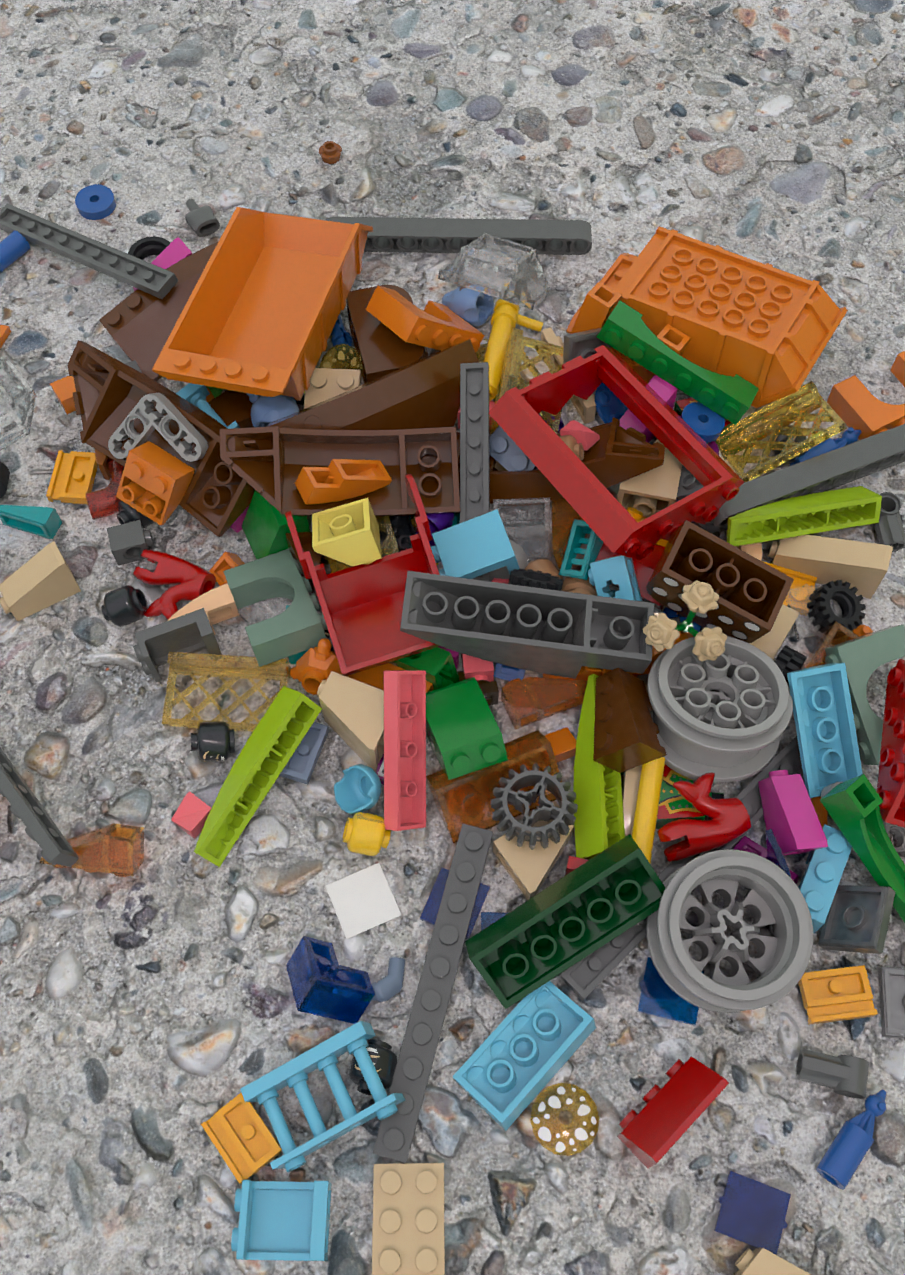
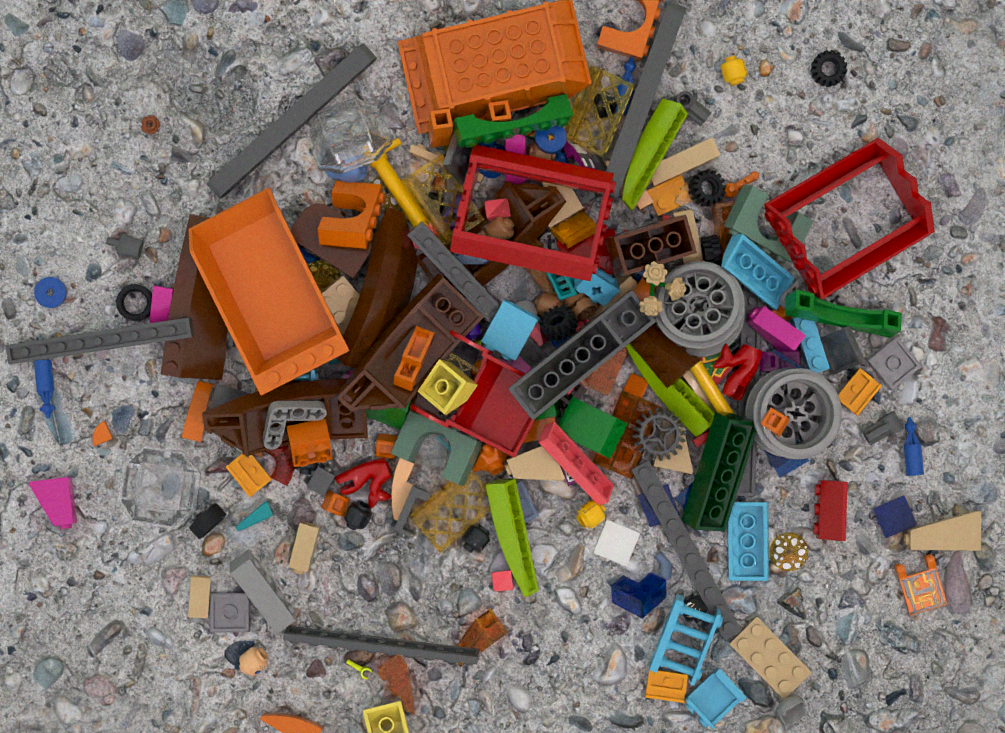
camera: 50 degrees left, 25 degrees up
(118, 577) = (335, 503): none -> orange slope
(358, 789) = (567, 498): medium azure hair -> none
(698, 902) = (775, 422): none -> orange slope

